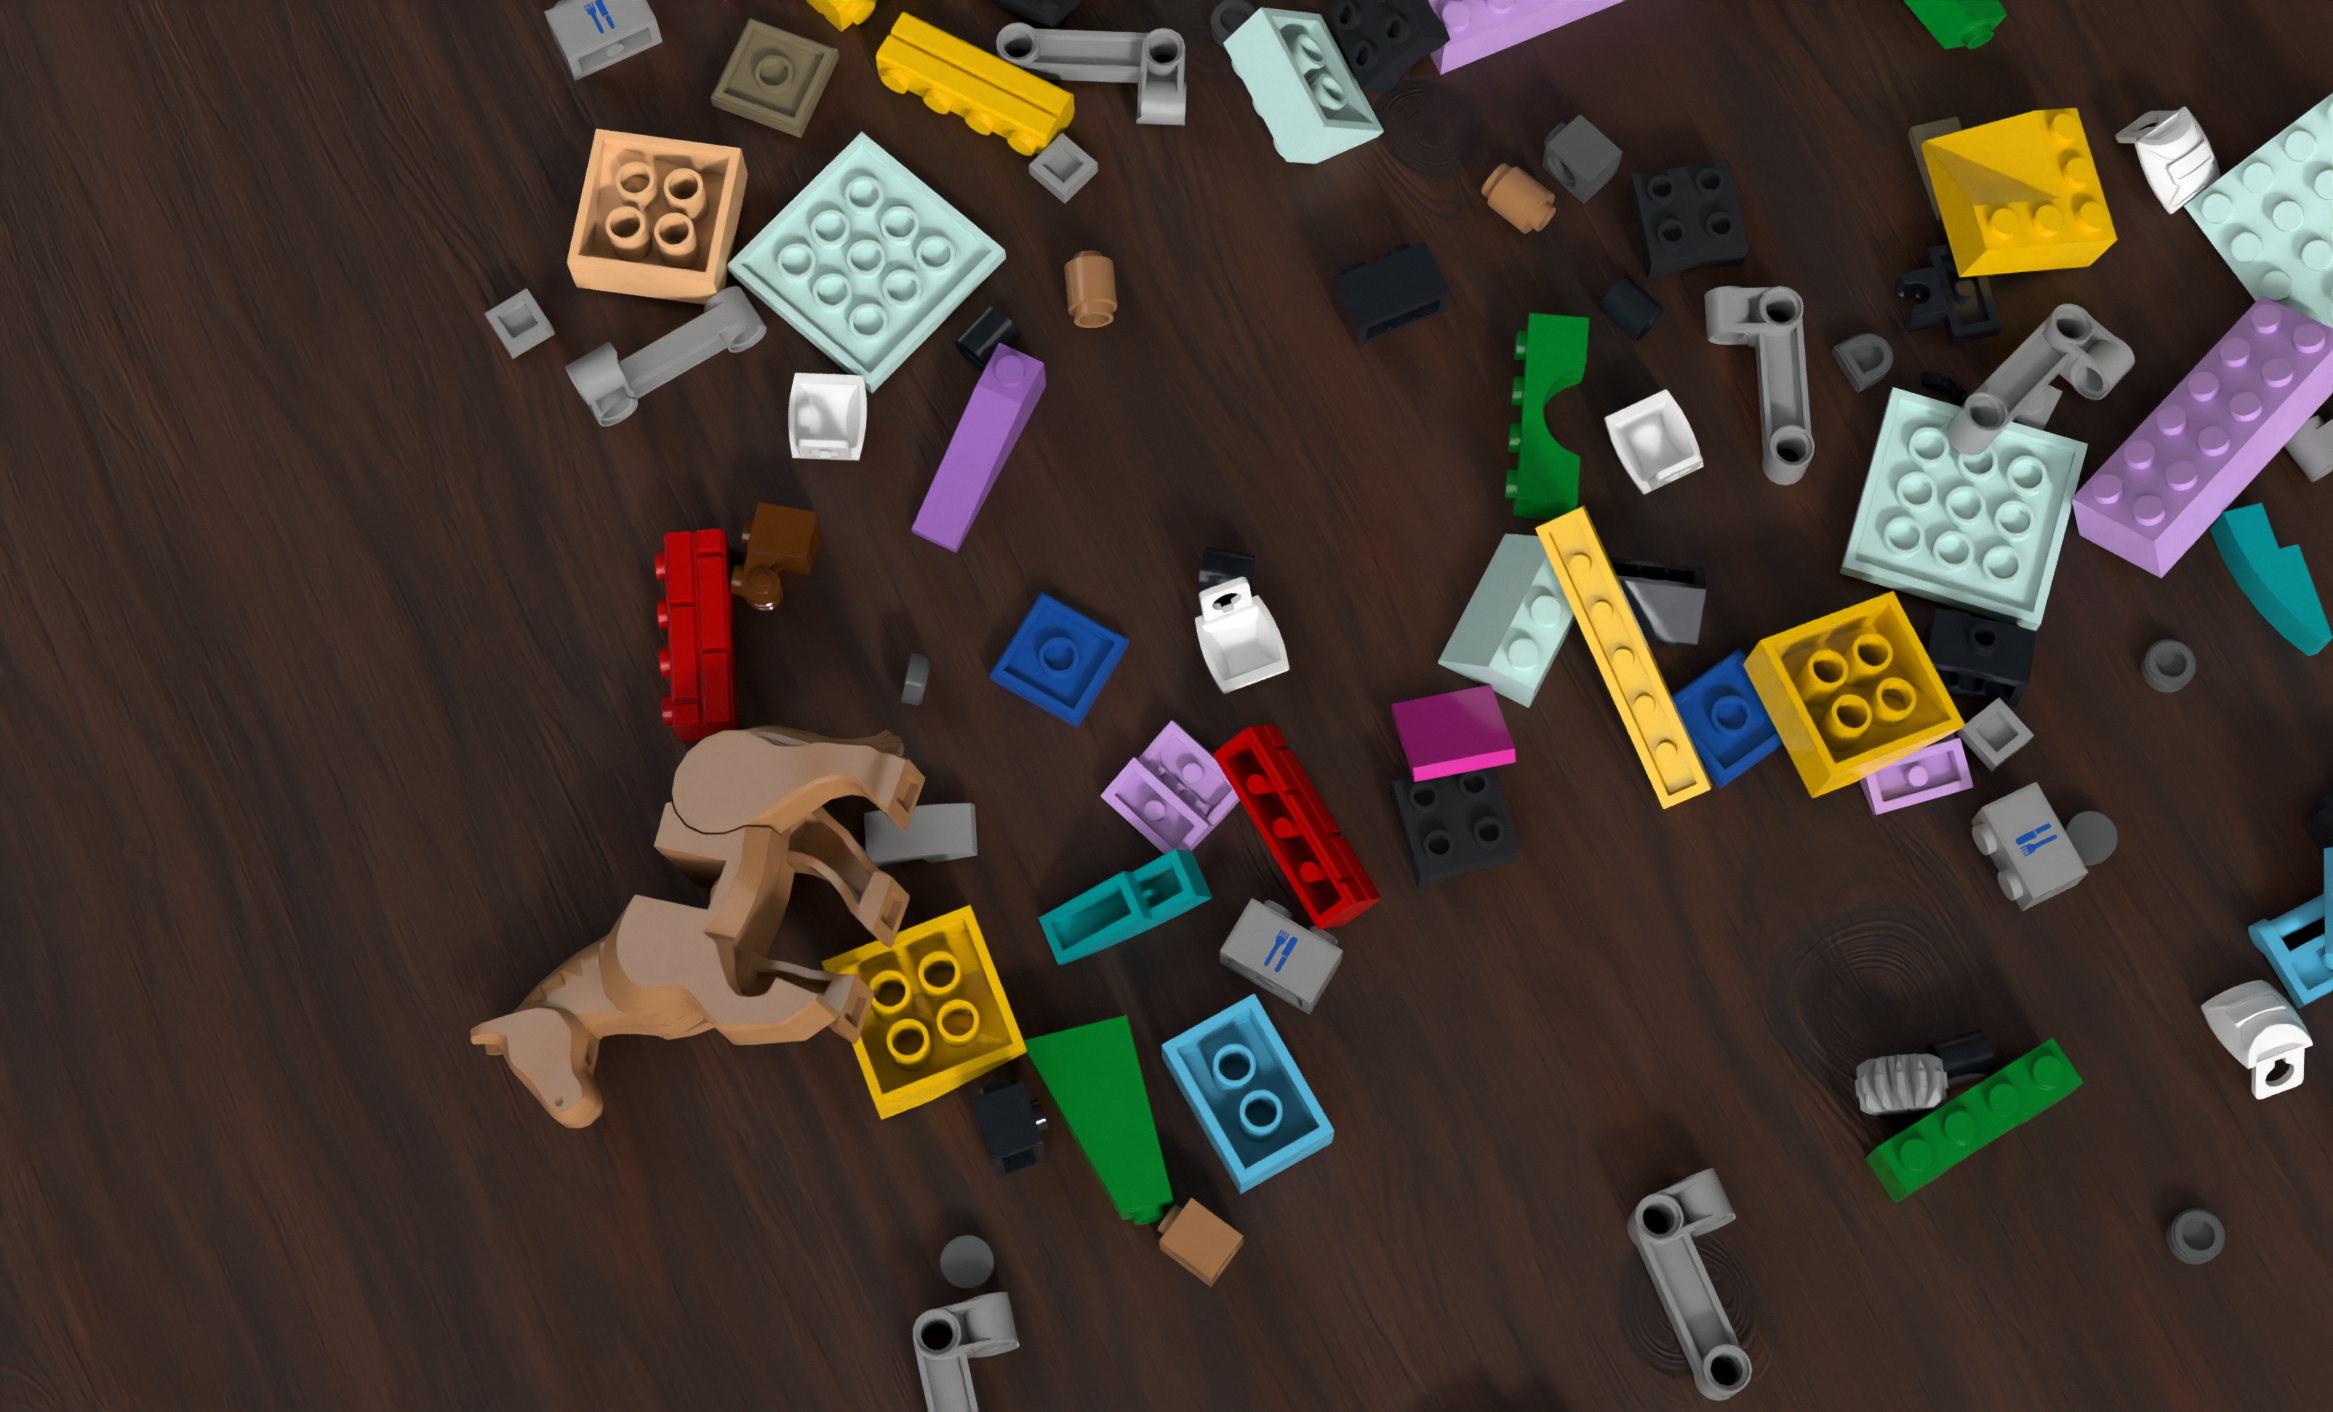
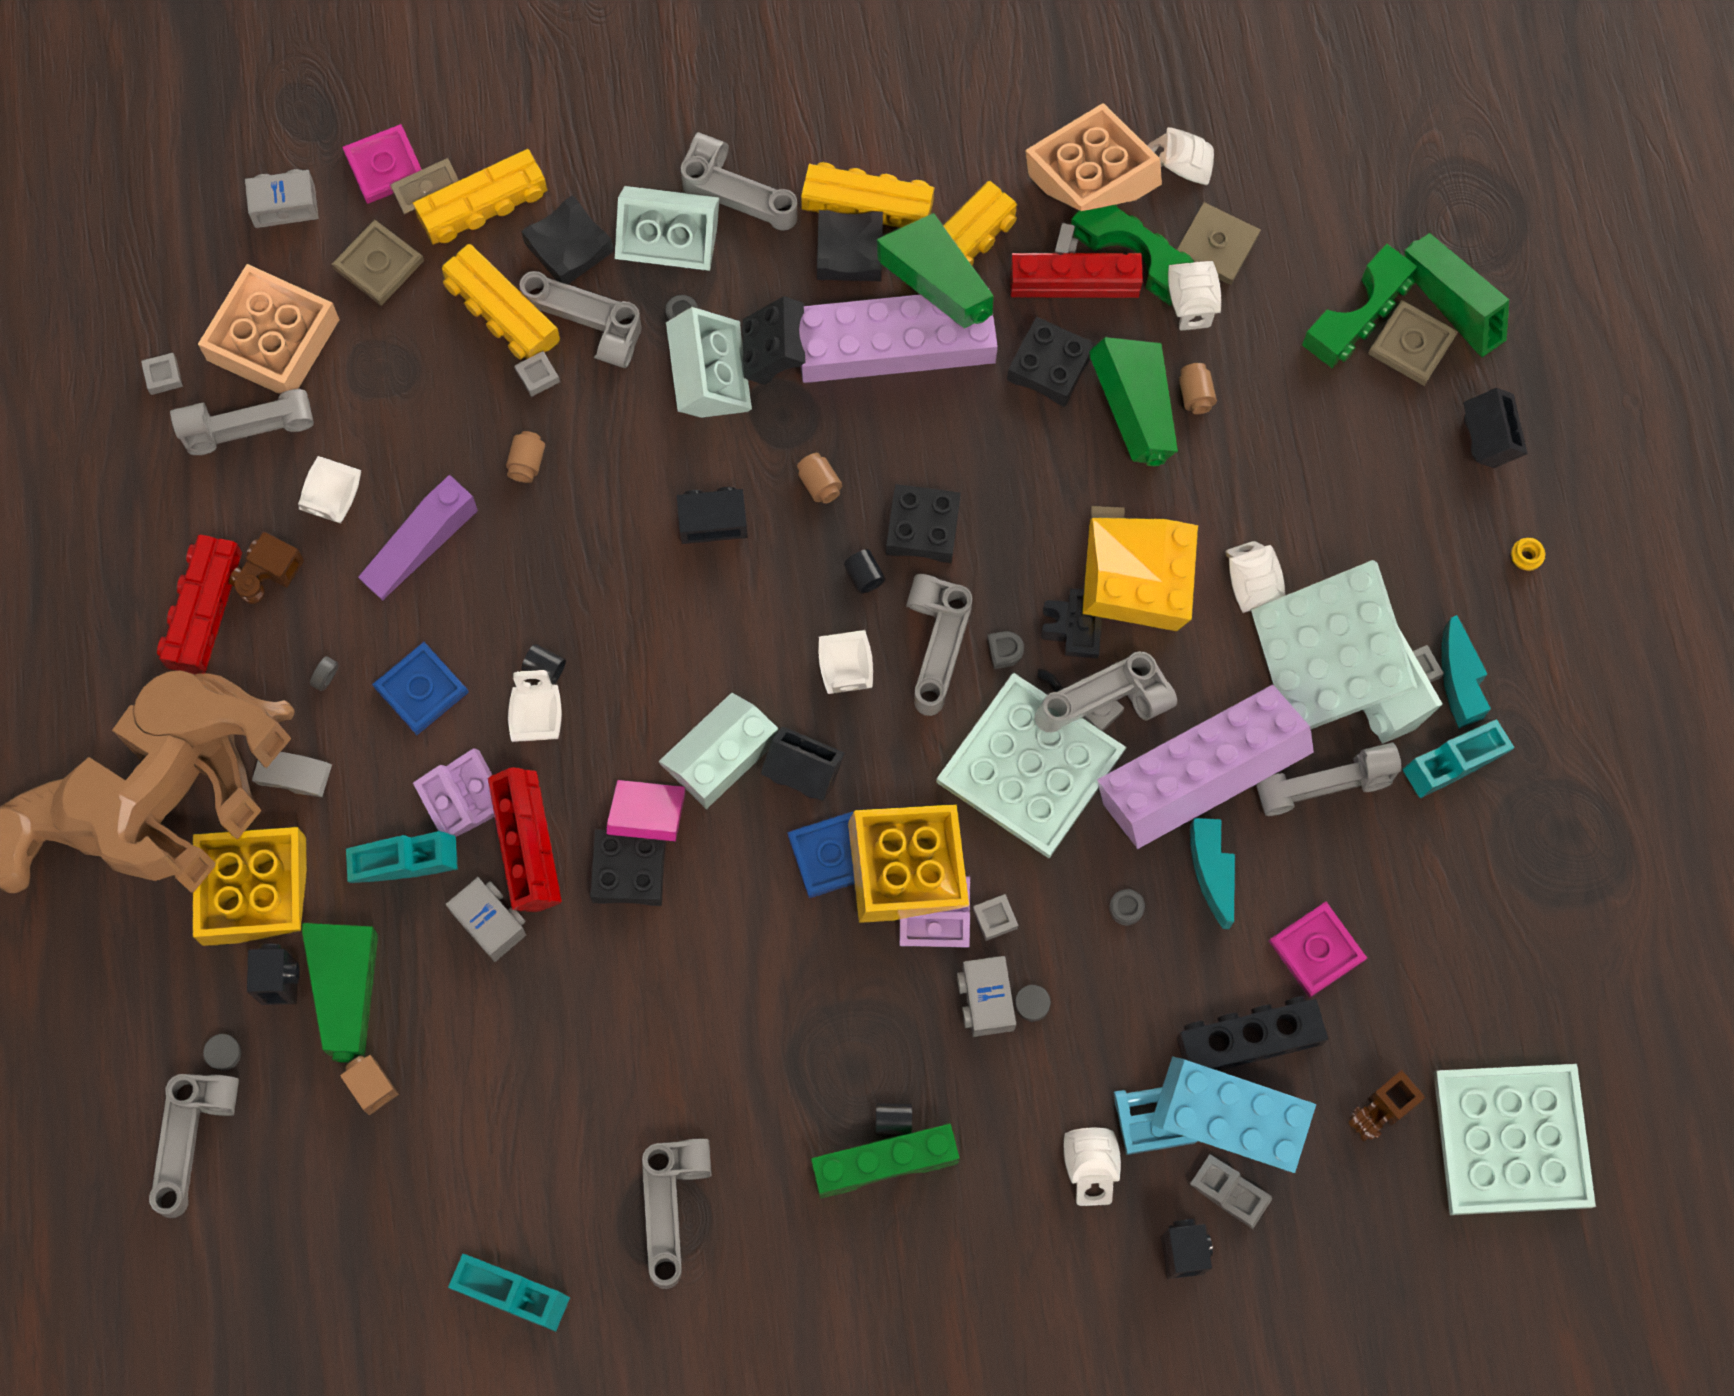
camera: 15 degrees right, 0 degrees up
(866, 261) = (391, 397): light aqua plate -> none
(984, 335) = (450, 464): black beam -> none
(1247, 1093) = (430, 1000): medium azure brick -> none
(1545, 472) = (800, 589): green arch -> none
(1580, 157) = (868, 463): dark grey brick -> none
(1623, 657) = (767, 795): yellow plate -> none
(1901, 1084) = (845, 1123): light grey gear -> none
(1980, 655) = (1001, 863): black brick -> none
(2195, 1236) = (1003, 1280): dark grey tile -> none

